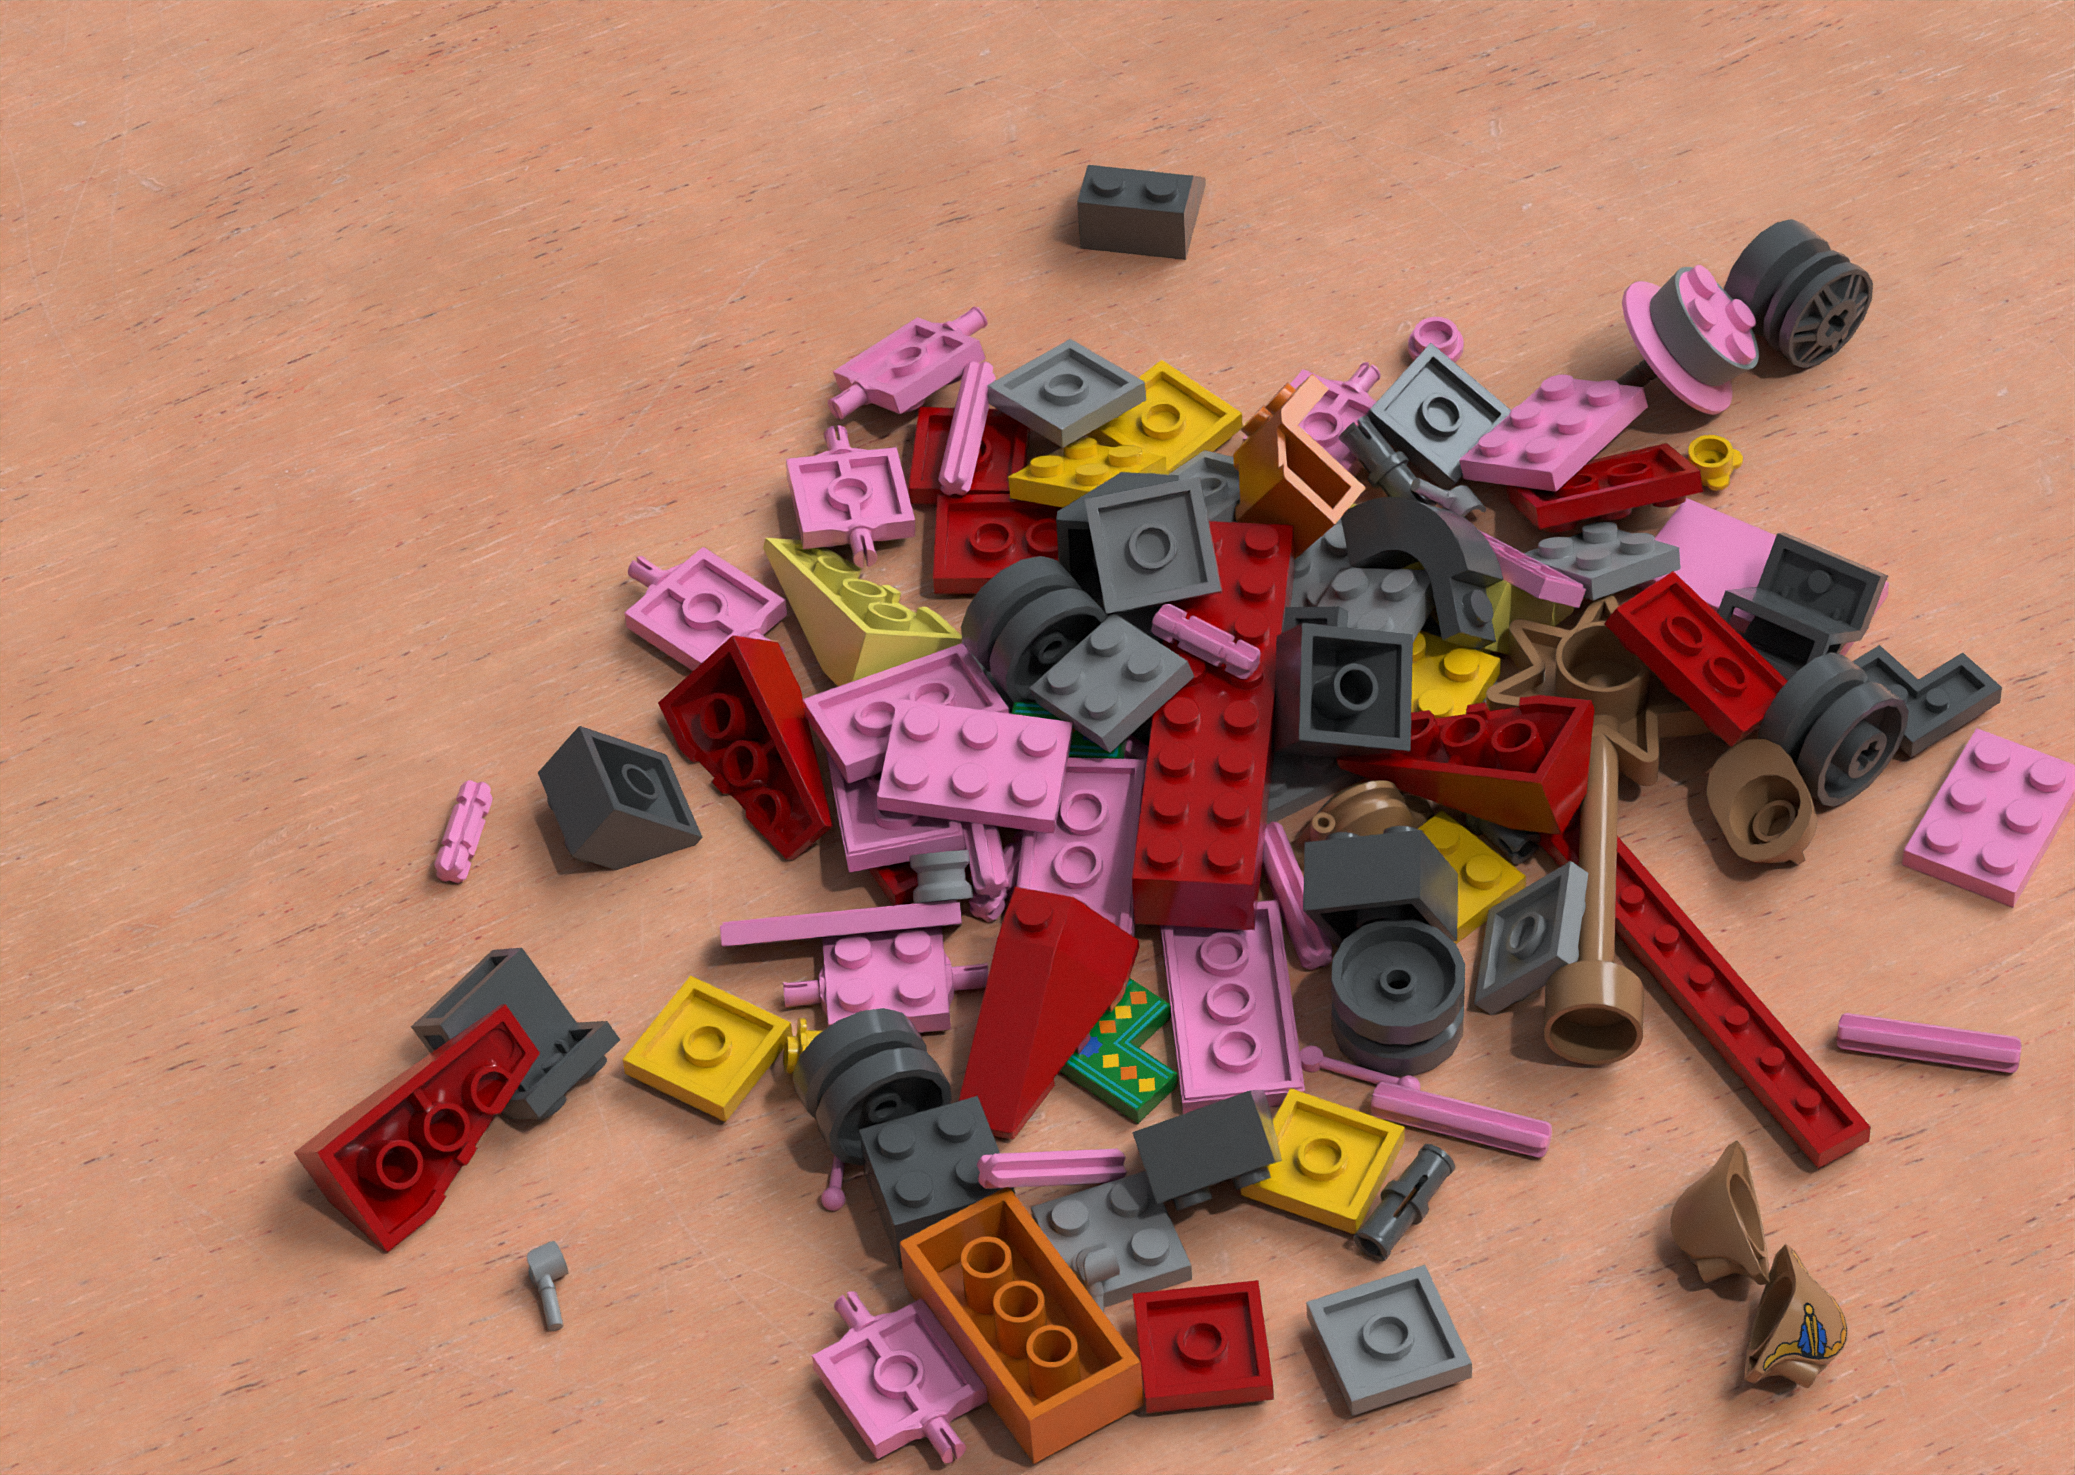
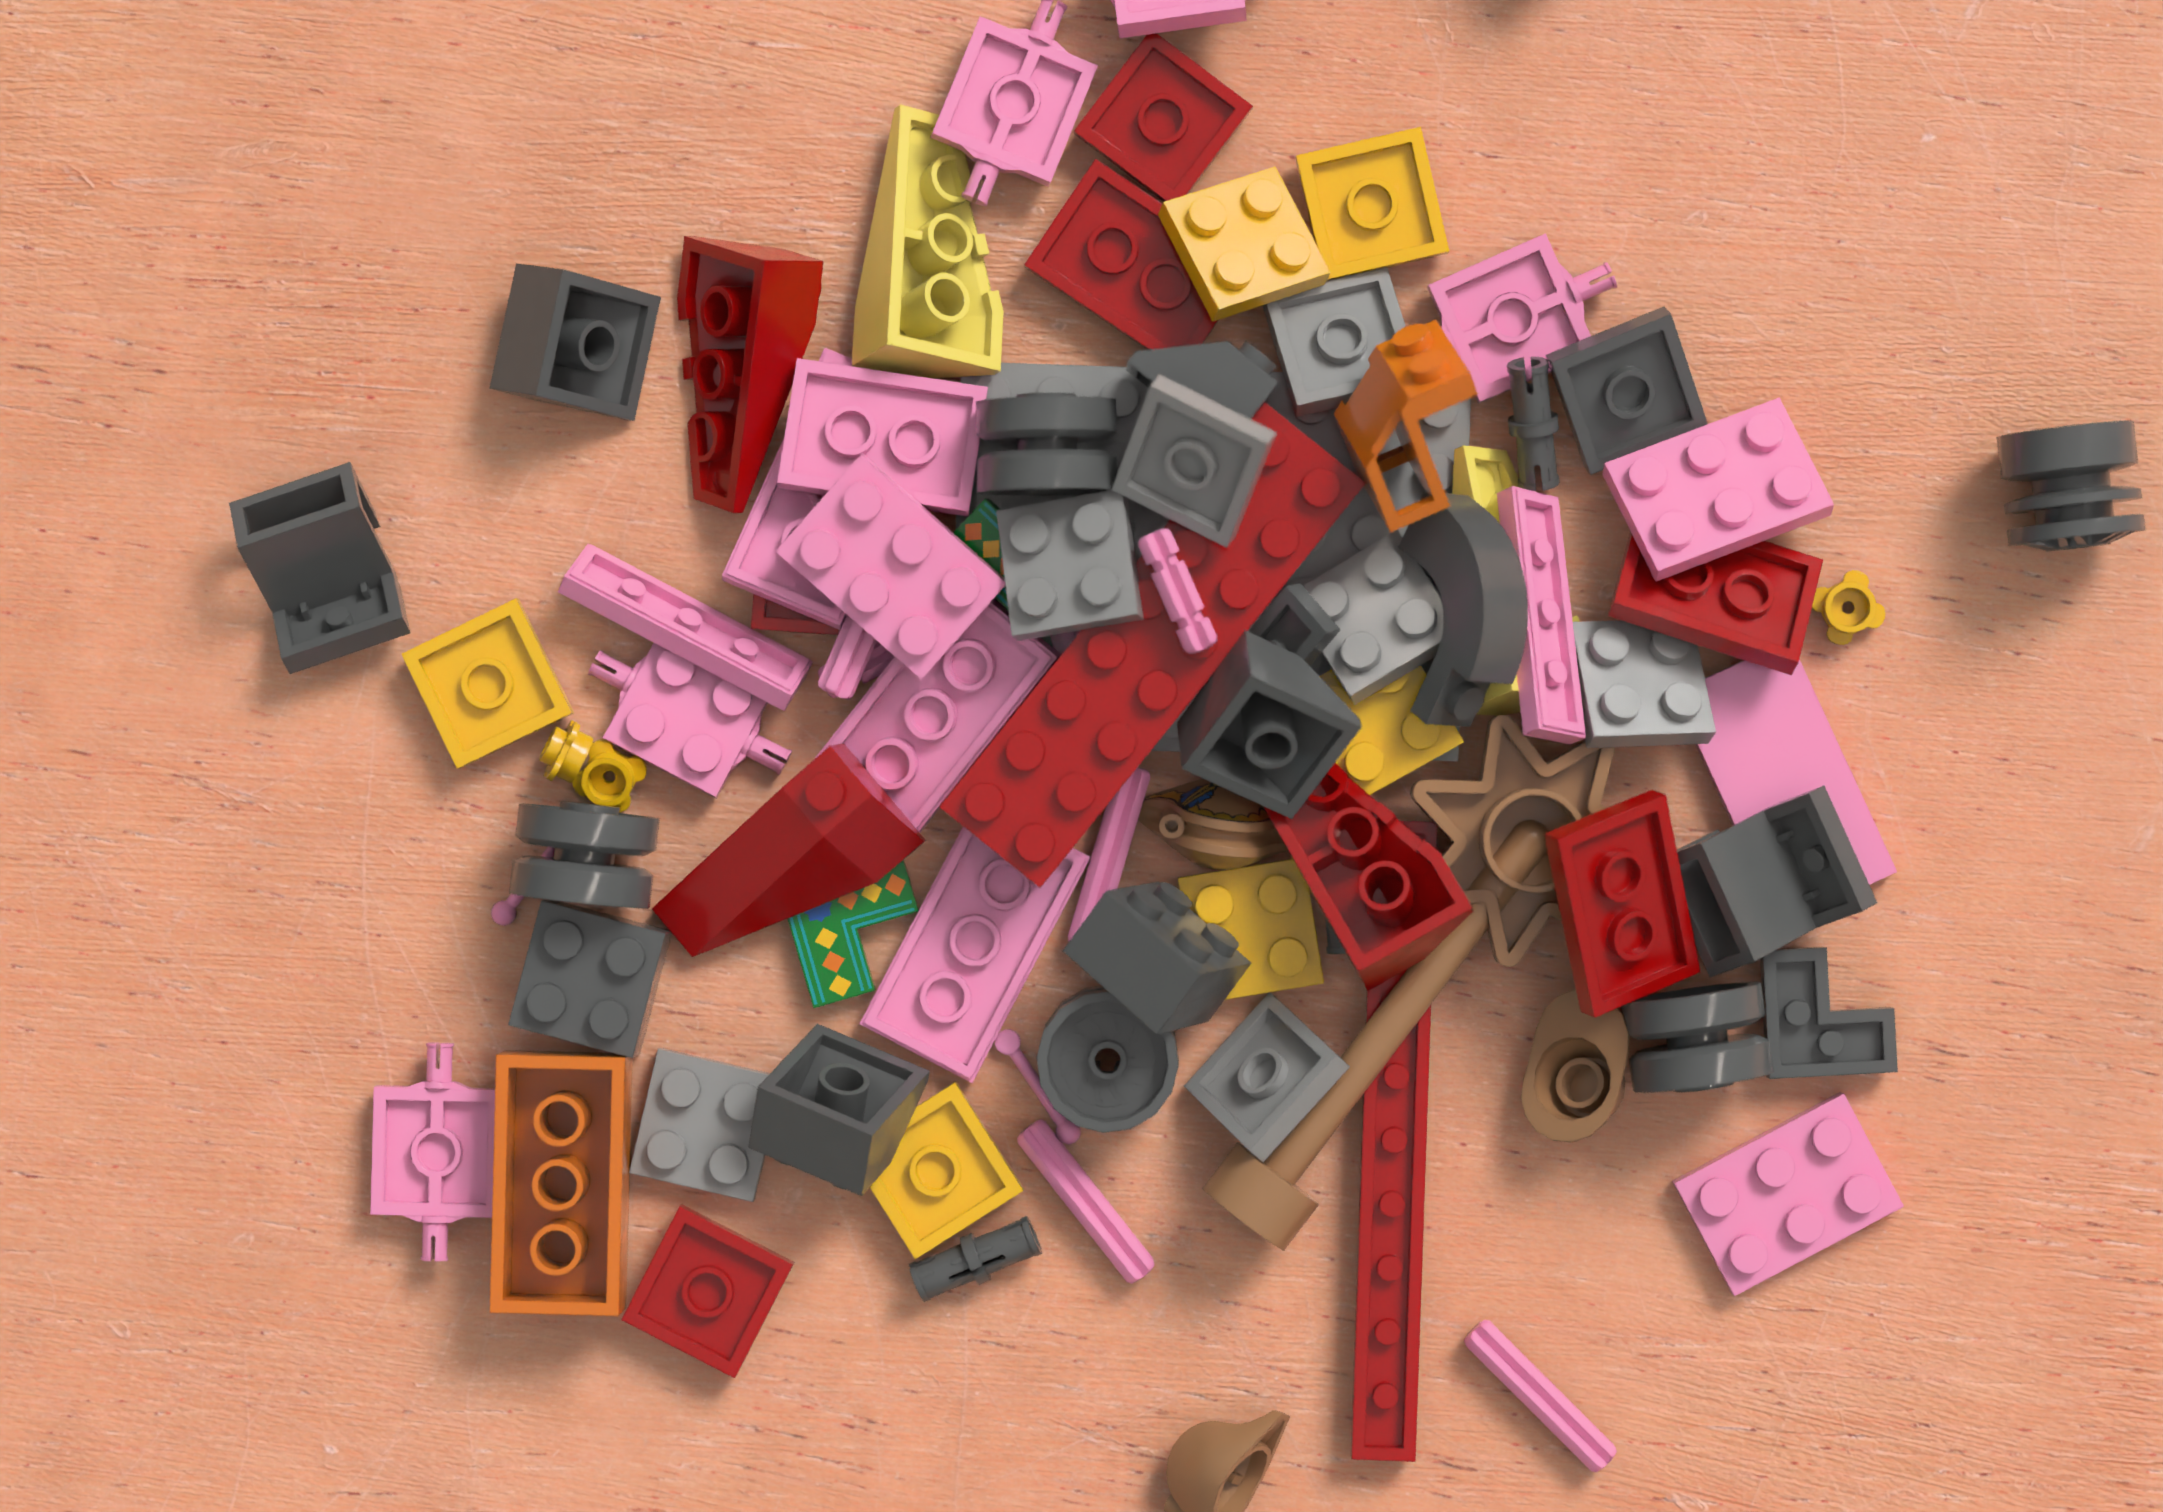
camera: 25 degrees right, 40 degrees up
(409, 1139) = (153, 620): red wedge -> none
(463, 831) = (421, 270): bright pink axle -> none
(545, 1266) = (210, 825): light grey hand -> none
(700, 606) = (793, 153): bright pink plate -> none
(941, 876) = (794, 653): light grey wheel -> none
(966, 429) = (1170, 102): bright pink axle -> none
(1051, 1168) = (682, 1049): bright pink axle -> none
(1066, 393) = (1289, 128): light grey plate -> none
(1096, 1265) = (660, 1170): light grey hand -> none
(1388, 1340) = (865, 1389): light grey plate -> none
(1440, 333) = (1702, 275): bright pink plate -> none
(1458, 500) = (1577, 502): light grey hand -> none
(1690, 337) = (1918, 477): bright pink piece -> none

